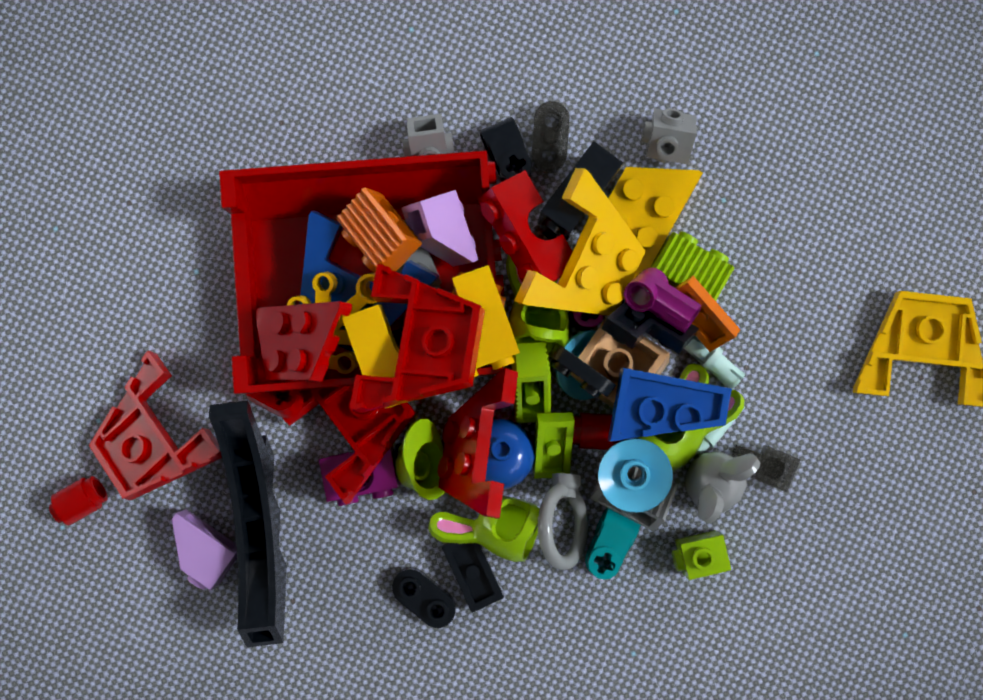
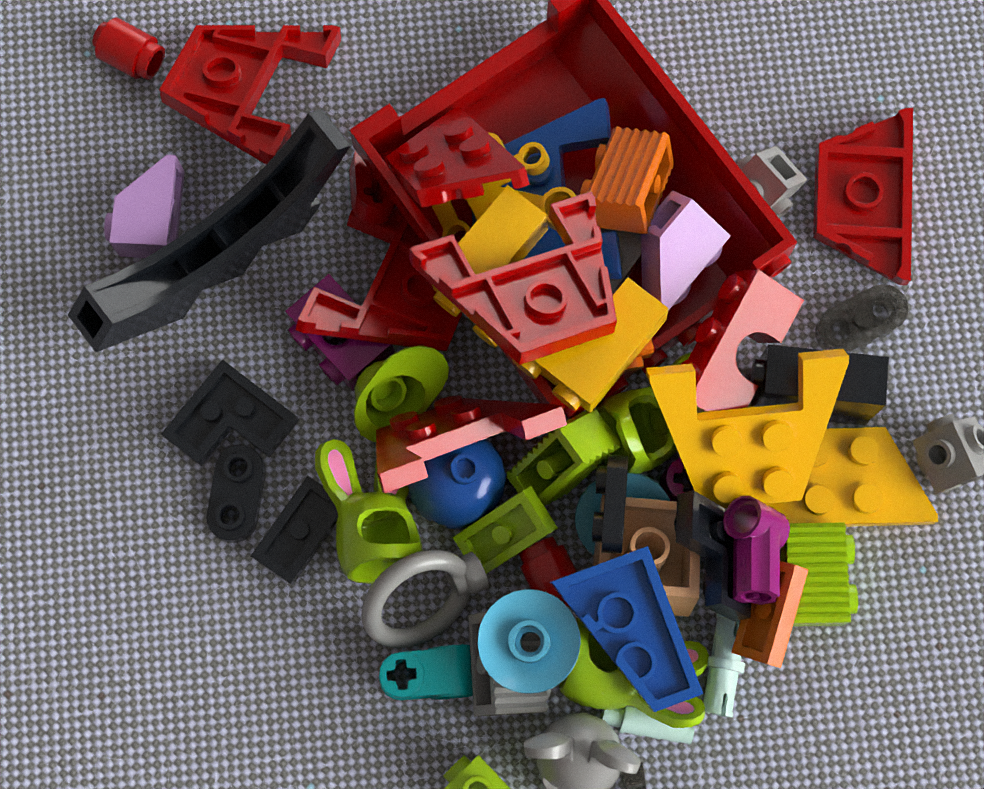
camera: 60 degrees right, 10 degrees down
(362, 574) = (225, 404): none -> black plate
(472, 80) = (867, 195): none -> red wing
(506, 148) = (817, 277): black piece -> none

